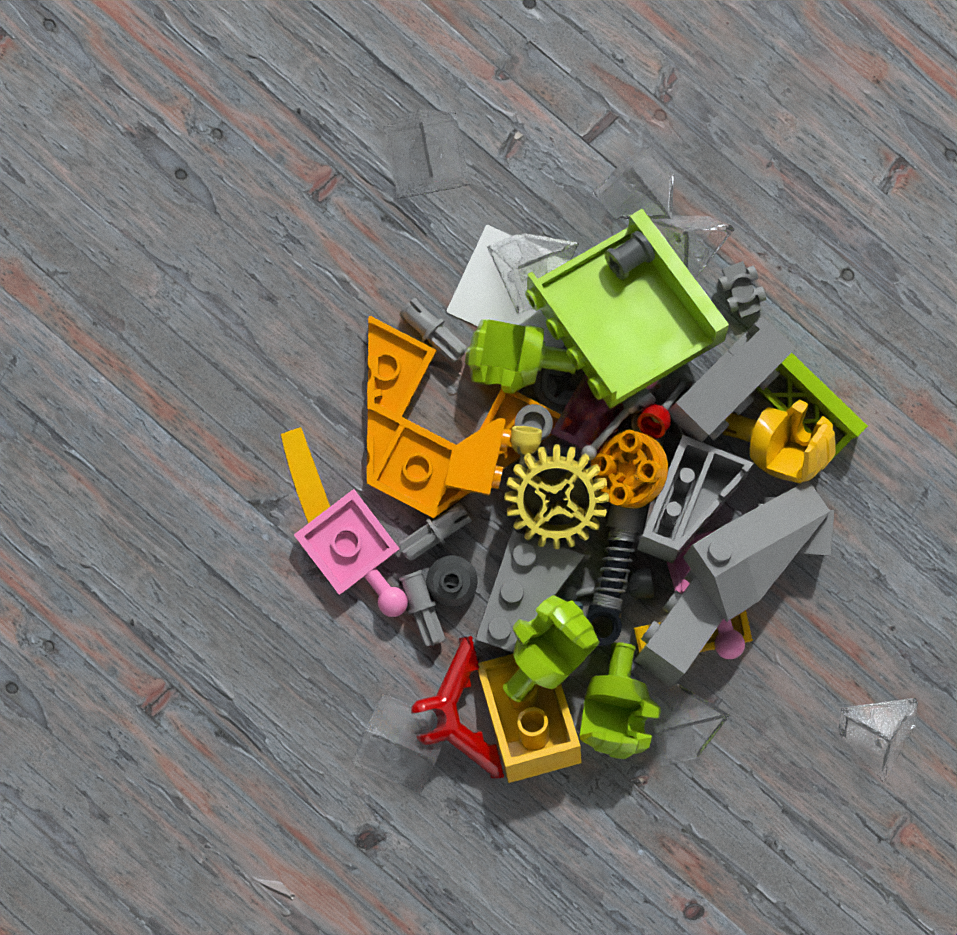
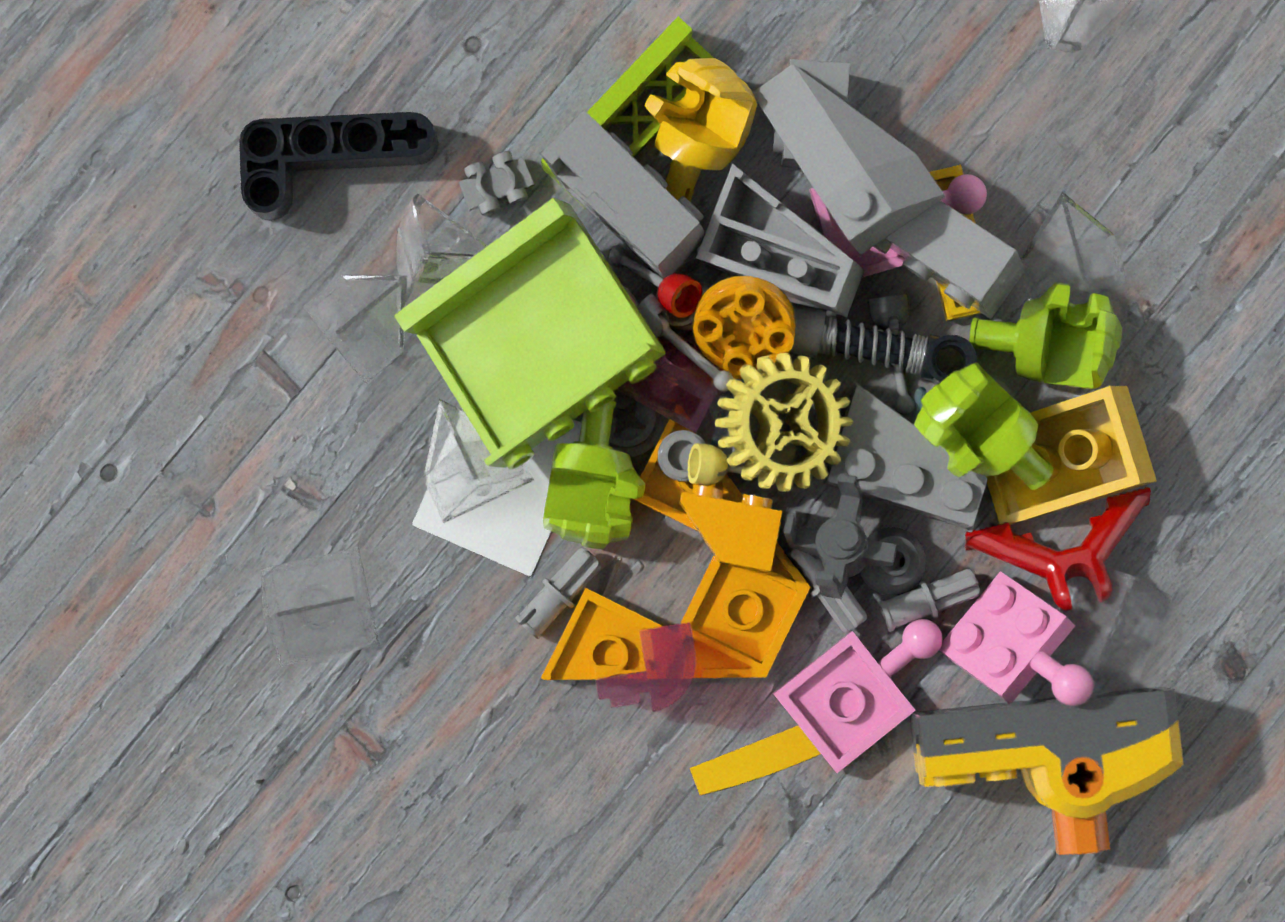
camera: 90 degrees left, 0 degrees up
(315, 743) = (1116, 737): none -> piece
(373, 408) = (668, 672): none -> clear pink brick
(388, 665) = (1010, 639): none -> bright pink plate
(465, 538) = (840, 542): none -> dark grey piece
(629, 255) = (457, 331): dark grey bush -> none
(766, 171) = (337, 154): none -> black beam

